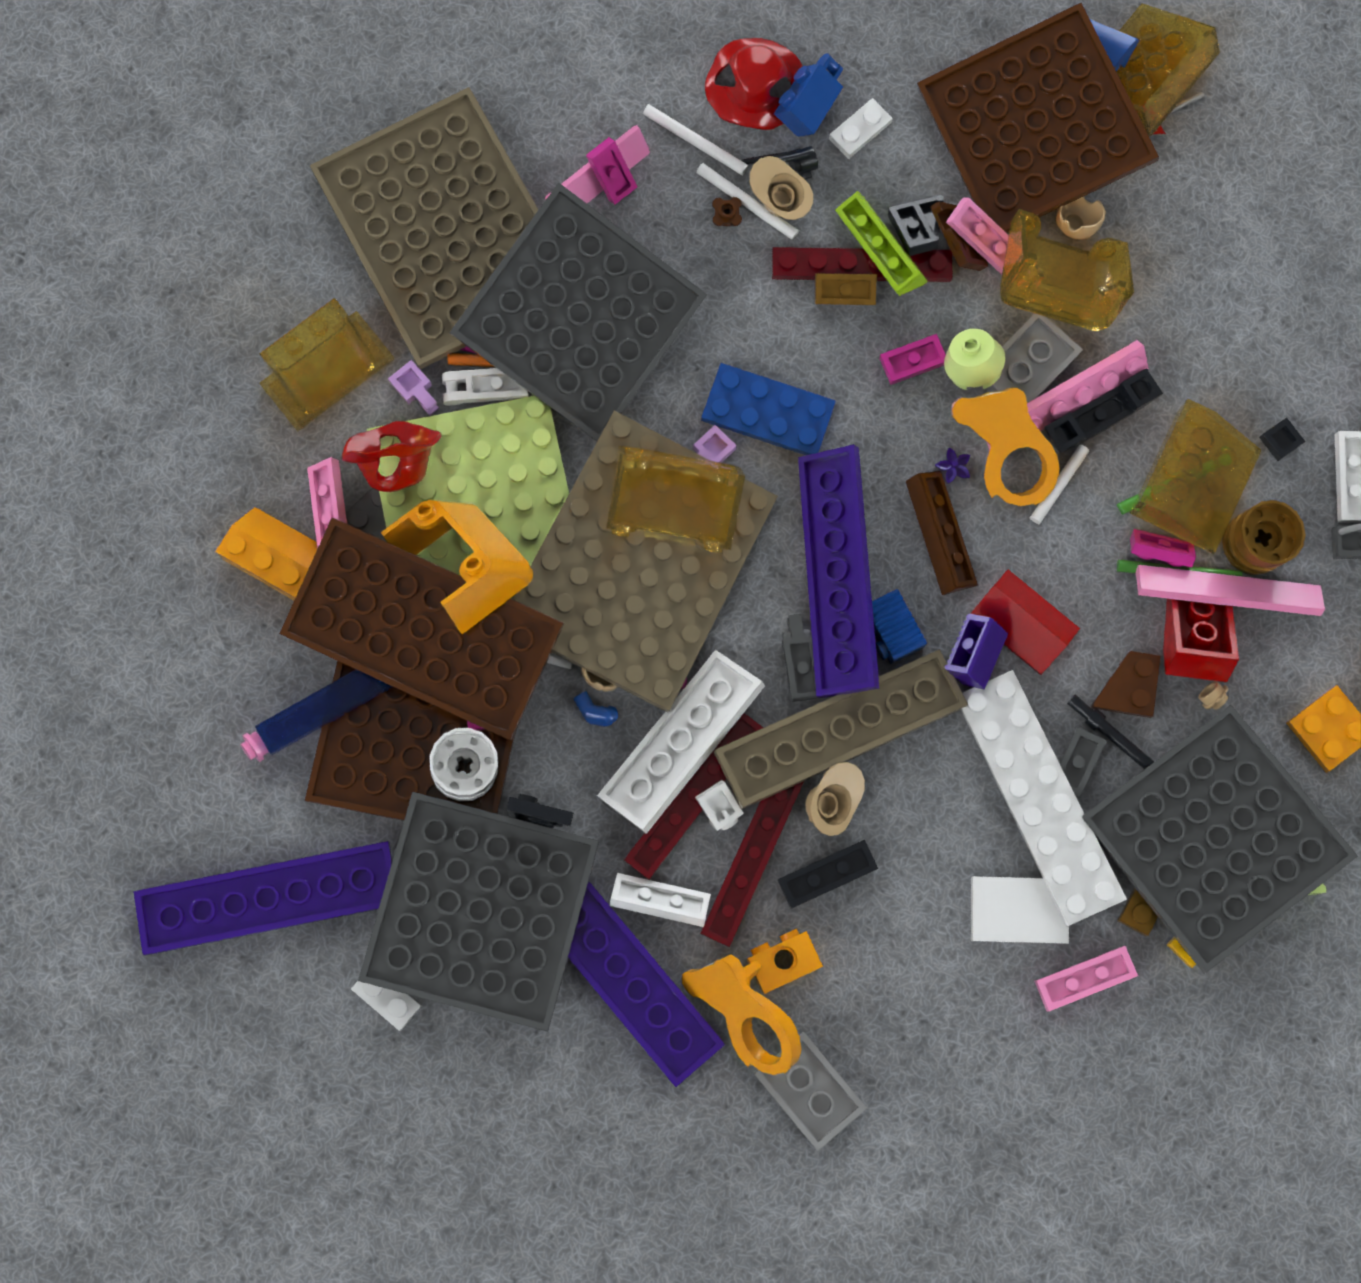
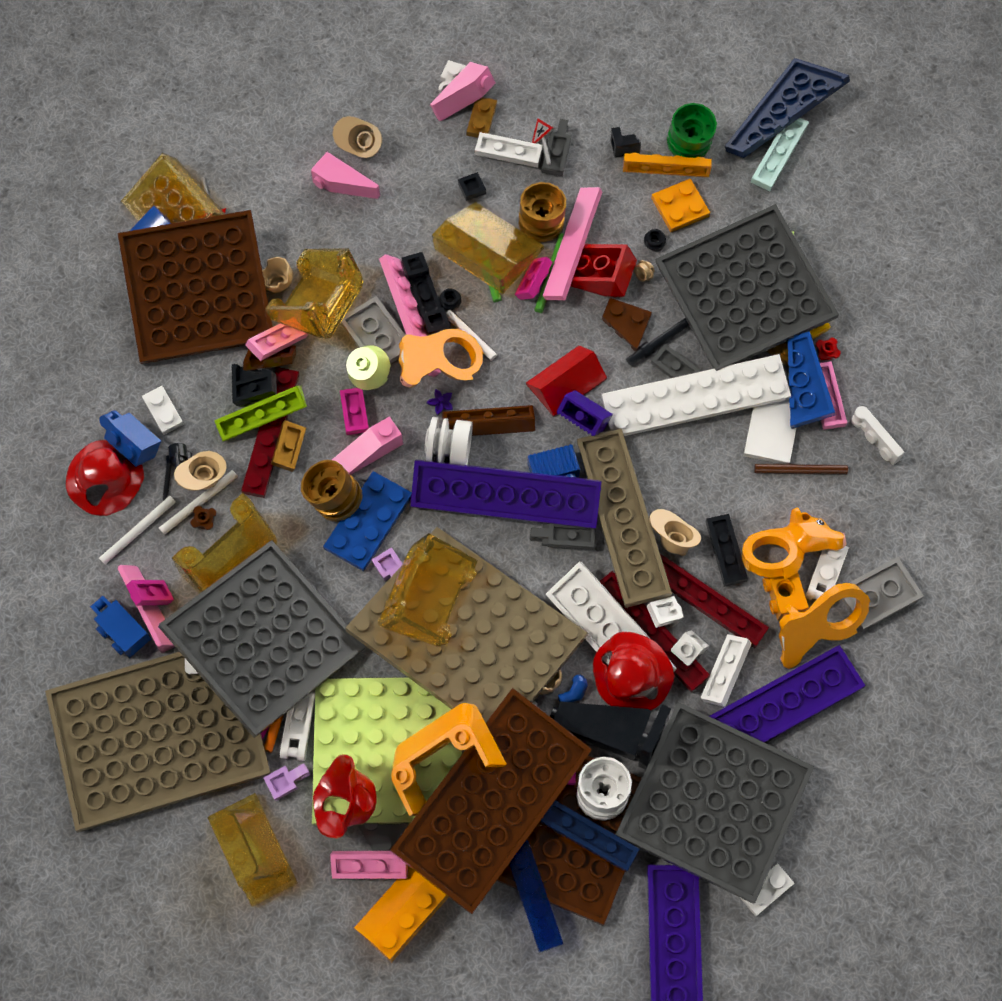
camera: 75 degrees left, 10 degrees down
(254, 746) = (552, 959): bright pink plate -> none
(406, 761) = (590, 836): none -> dark blue plate
(553, 754) = (604, 726): none -> black slope
(564, 148) = (120, 627): none -> blue brick
(630, 778) = (633, 668): none -> red piece
(681, 847) = (689, 647): none -> white bracket
(708, 265) = (229, 551): none -> clear yellow windscreen
(790, 352) = (331, 490): none -> pearl gold wheel
(829, 1014) = (826, 571): none -> white plate
(866, 388) = (370, 446): none -> bright pink slope
(866, 971) = (799, 537): none -> light orange animal
(891, 484) = (448, 442): none -> white wheel
(968, 958) = (800, 469): none -> reddish brown bar
(1041, 1055) = (877, 435): none -> white plate
(1089, 947) = (808, 388): none -> blue wing
(1108, 438) = (450, 293): none -> black plate
(1149, 965) = (828, 354): none -> red plate
(1246, 264) = (341, 178): none -> bright pink slope
(1275, 700) = (654, 234): none -> black plate
(1313, 271) = (357, 136): none -> tan piece

